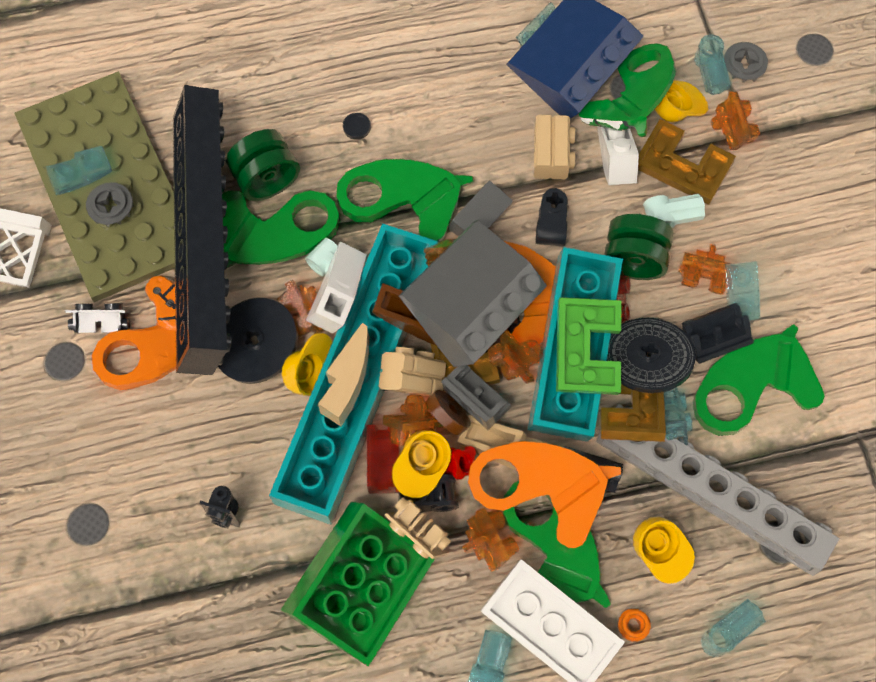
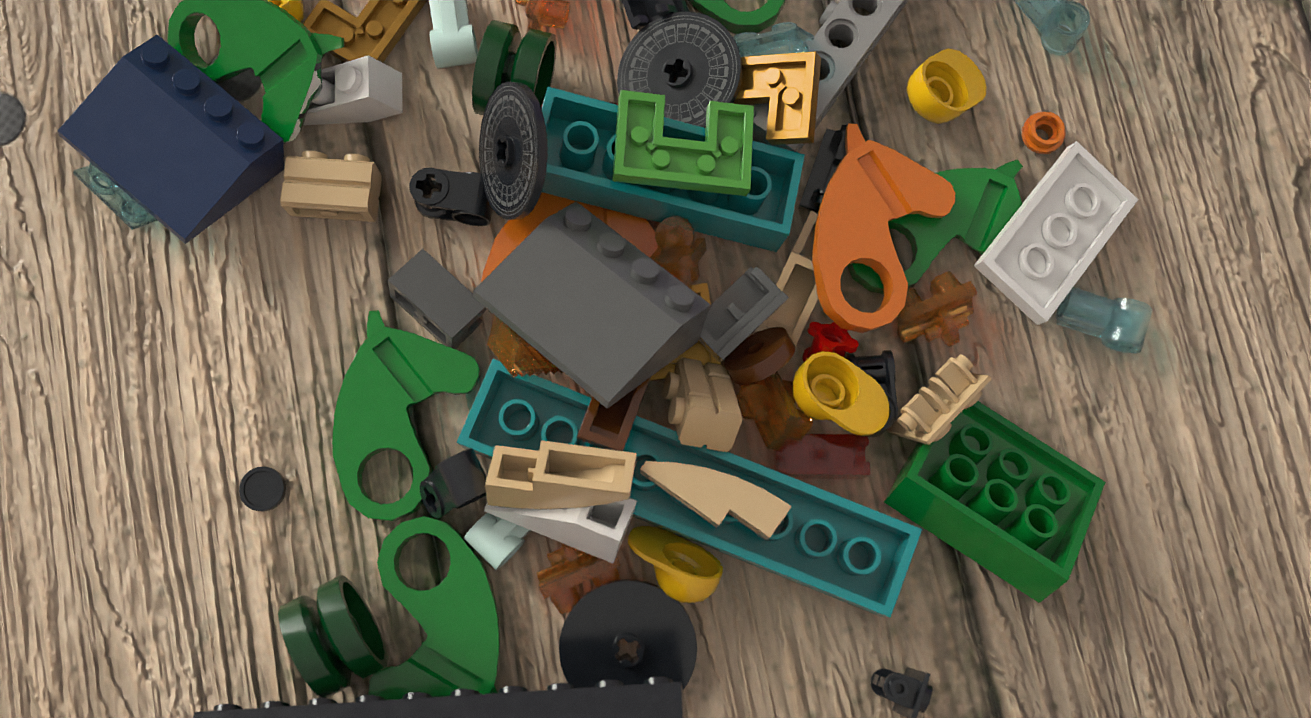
camera: 90 degrees left, 10 degrees up
(357, 226) = (453, 484): none -> black piece
(357, 275) = (558, 476): none -> tan slope
(575, 239) = (513, 150): none -> black piece

